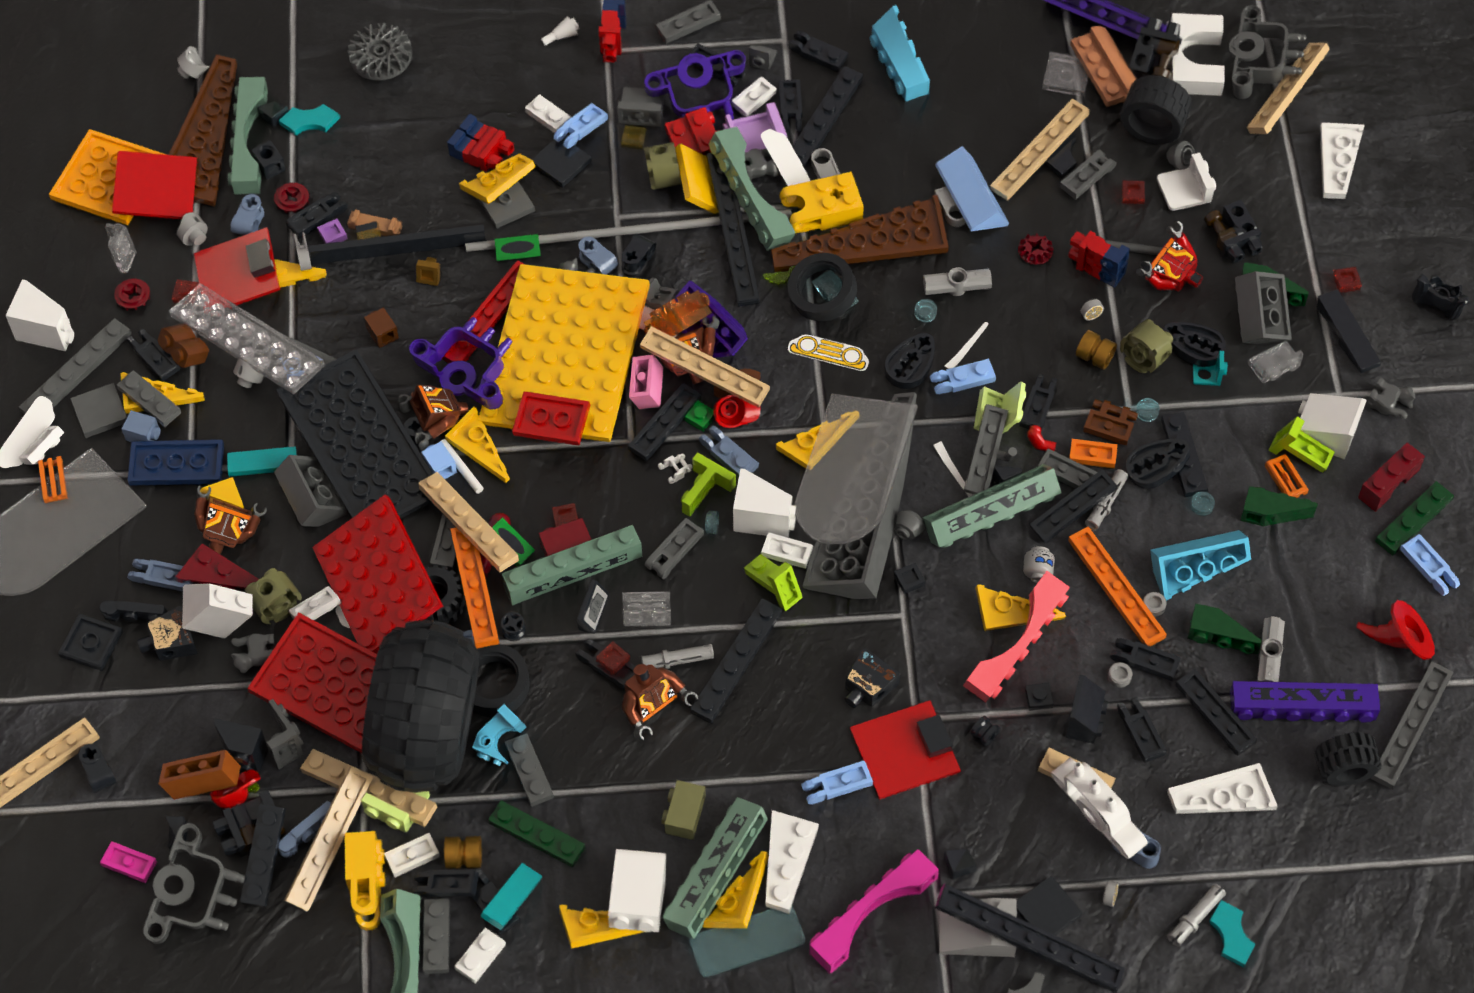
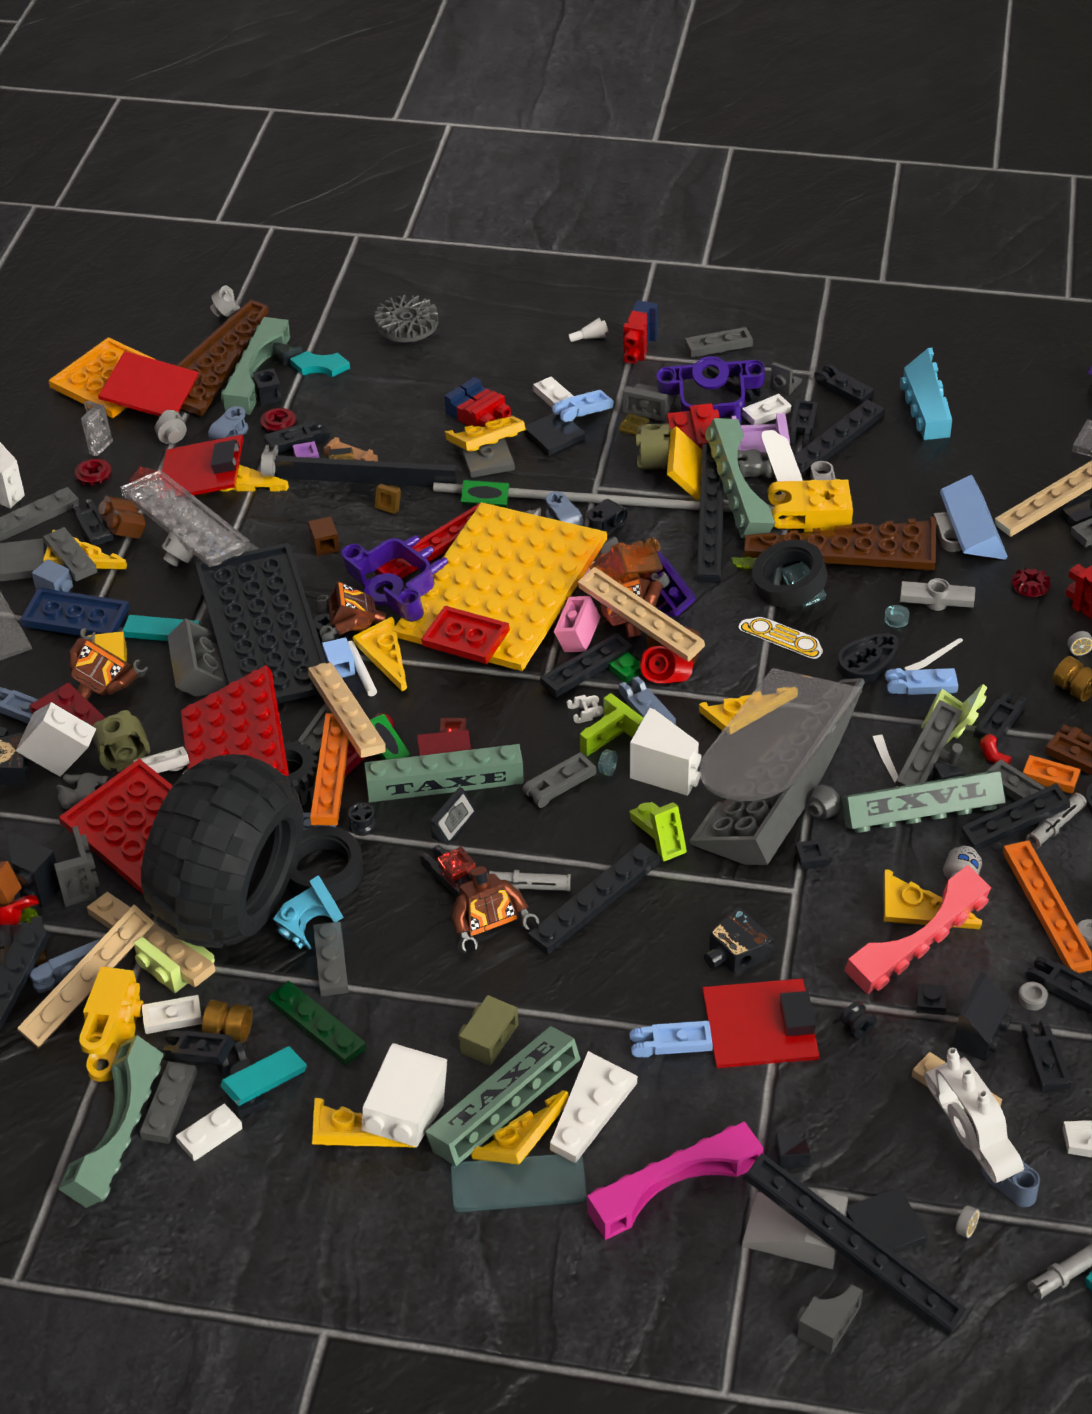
camera: 15 degrees right, 15 degrees down
(646, 609) = (510, 826): clear bracket -> none
(787, 550) = (691, 806): white plate -> none

